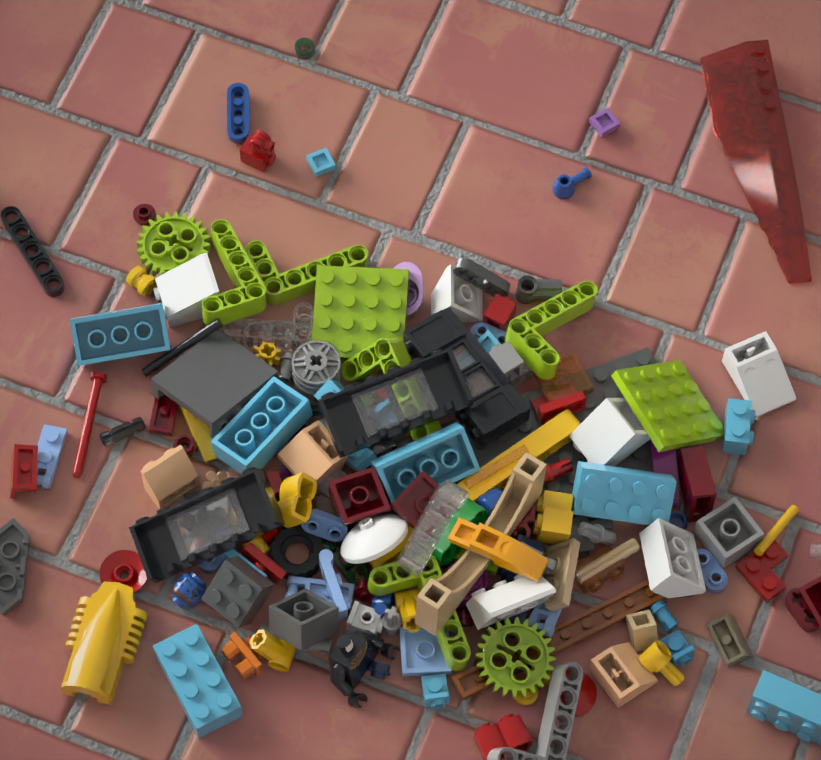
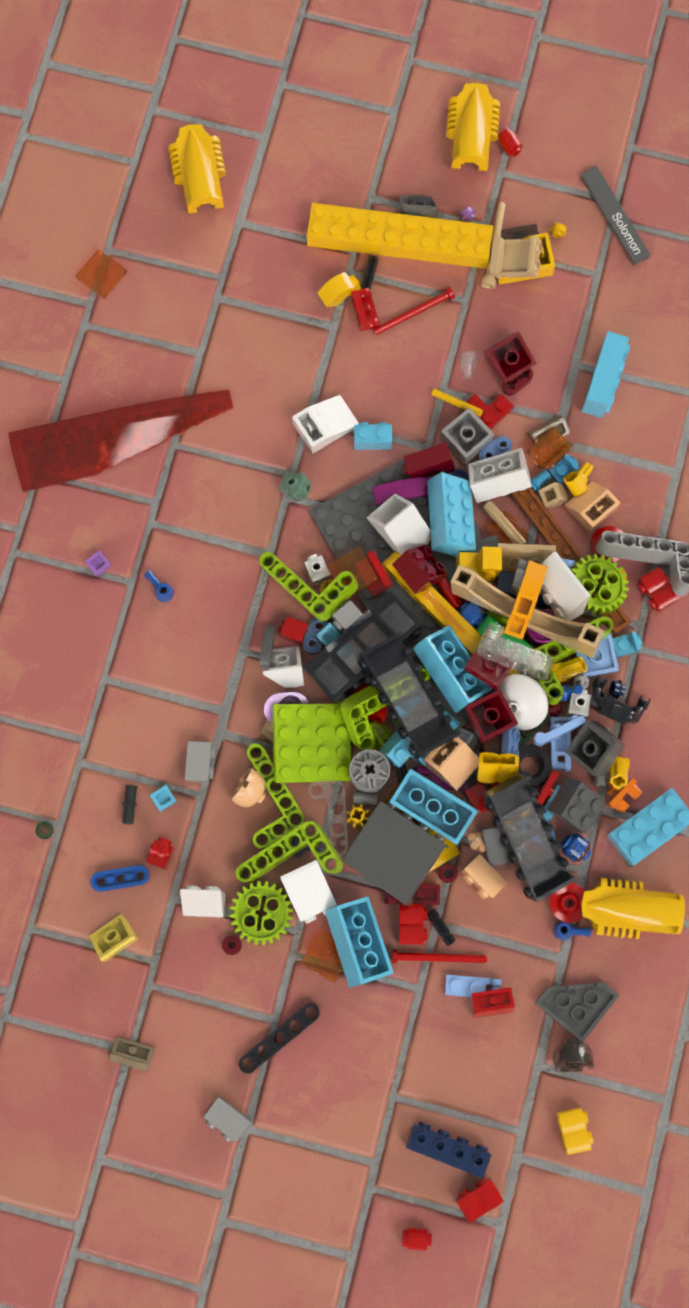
camera: 95 degrees left, 15 degrees up
(47, 109) = (132, 1054): none -> dark tan slope
(91, 572) = (570, 930): none -> blue bar
(111, 297) = (323, 957): none -> clear orange plate
(129, 398) = (411, 924): none -> red brick
(141, 280) = (301, 930): yellow wheel -> none
(172, 100) = (113, 938): none -> light yellow slope
(182, 347) = (362, 886): black bar -> none
(196, 183) = (203, 902): none -> white slope
(314, 243) = (249, 789): none -> light nougat cylinder
(319, 129) = (129, 804): none -> pearl dark grey axle
(356, 200) = (199, 762): none -> light grey brick
(540, 289) = (267, 600): dark grey piece -> none
(555, 442) = (419, 568): none -> dark red slope
(567, 344) = (320, 575): none -> white brick
(597, 533) = (486, 532): light grey axle -> none
(669, 405) = (367, 487): lime plate -> none
(679, 332) = (295, 486): none -> sand green brick
(705, 632) = (549, 449): none -> clear orange bracket

